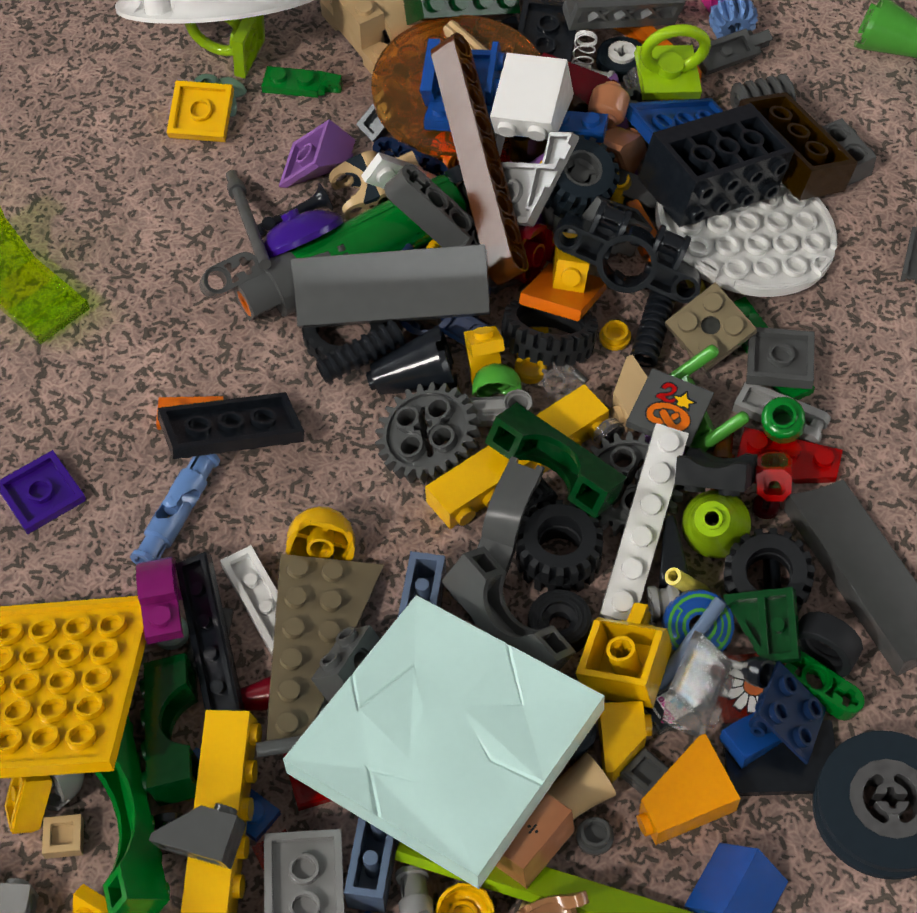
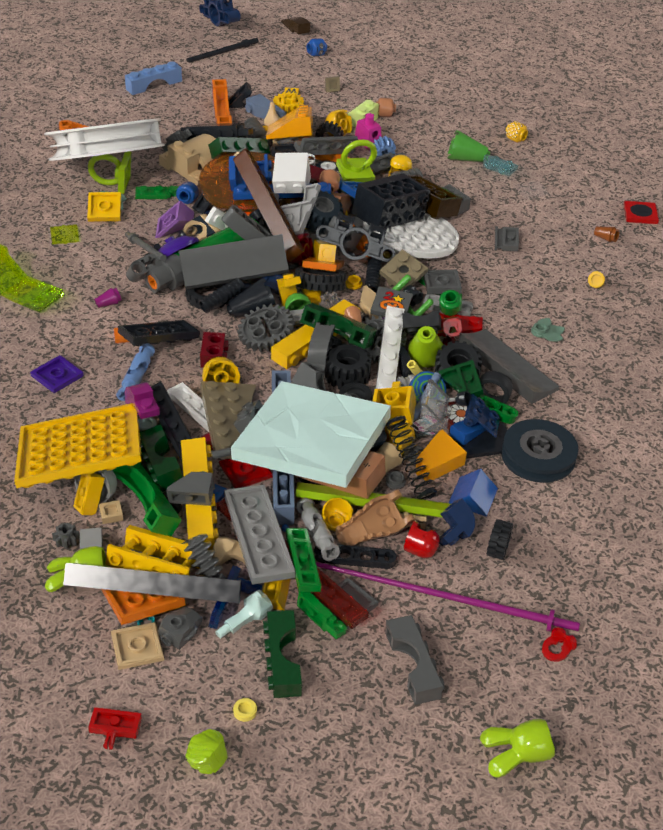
camera: 15 degrees left, 15 degrees down
(122, 164) = (64, 234): none -> clear neon green piece
(164, 325) = (108, 298): none -> magenta cone
(316, 473) = (213, 346): none -> dark red brick
(353, 91) = (187, 192): none -> blue head
(591, 434) = (354, 313): none -> nougat cone
(647, 884) = (433, 490): none -> black piece
(716, 379) = (417, 295): none -> black wheel
(758, 58) = (400, 163): none -> yellow helmet

